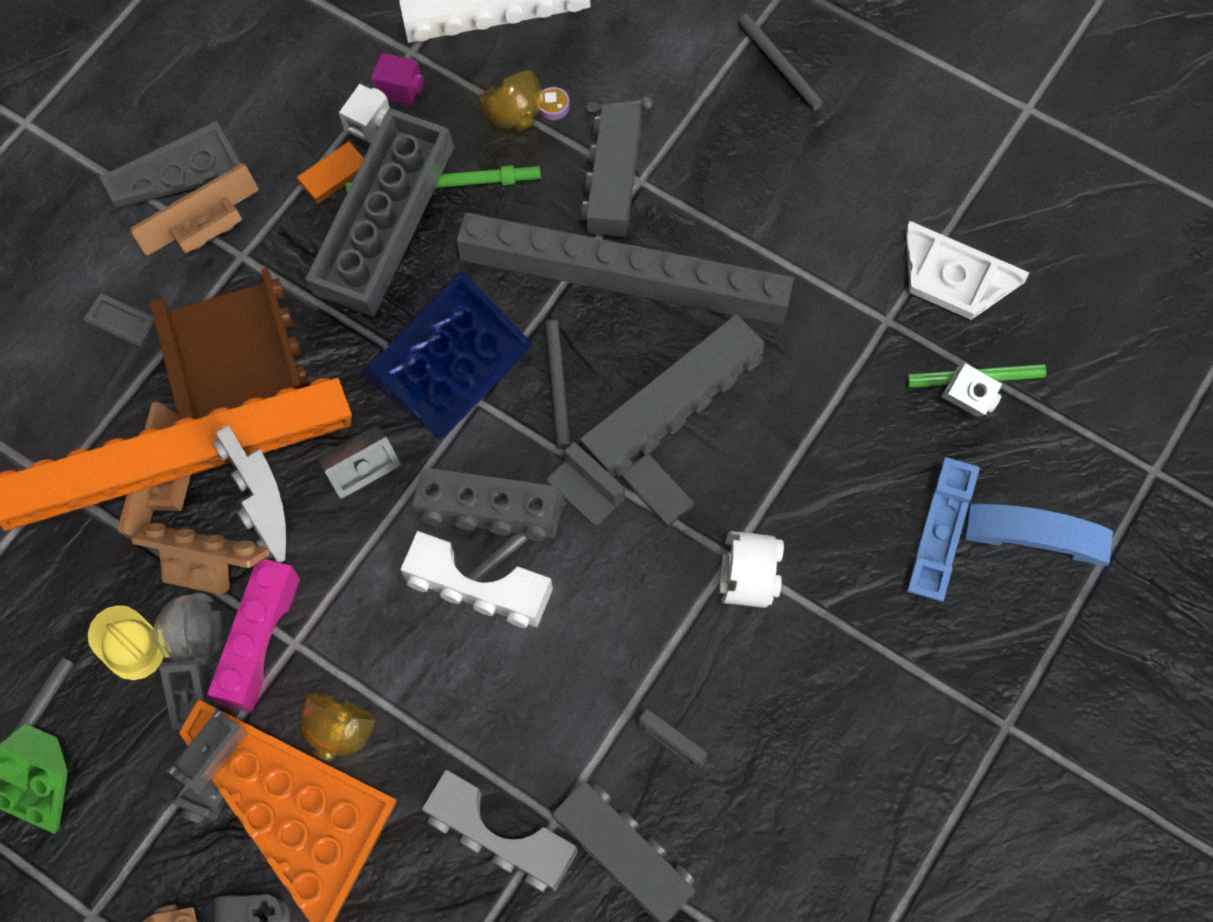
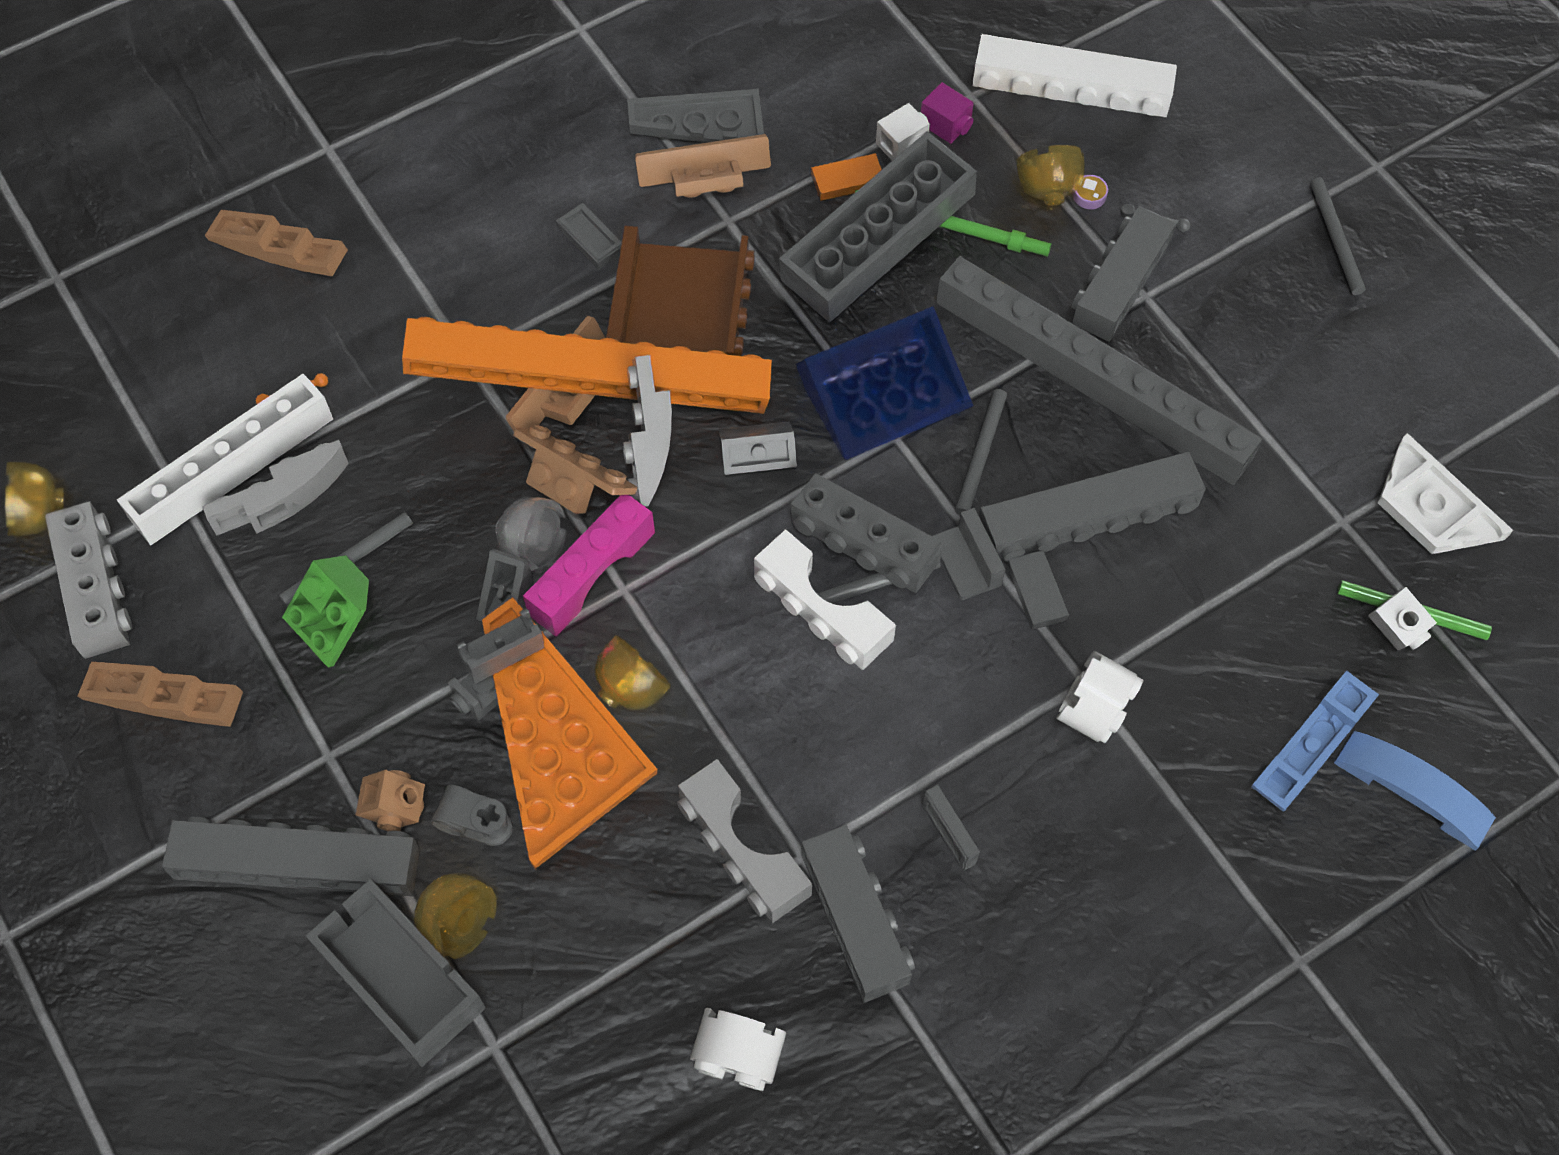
camera: 20 degrees right, 5 degrees down
(125, 642) = (467, 524): light yellow piece -> none

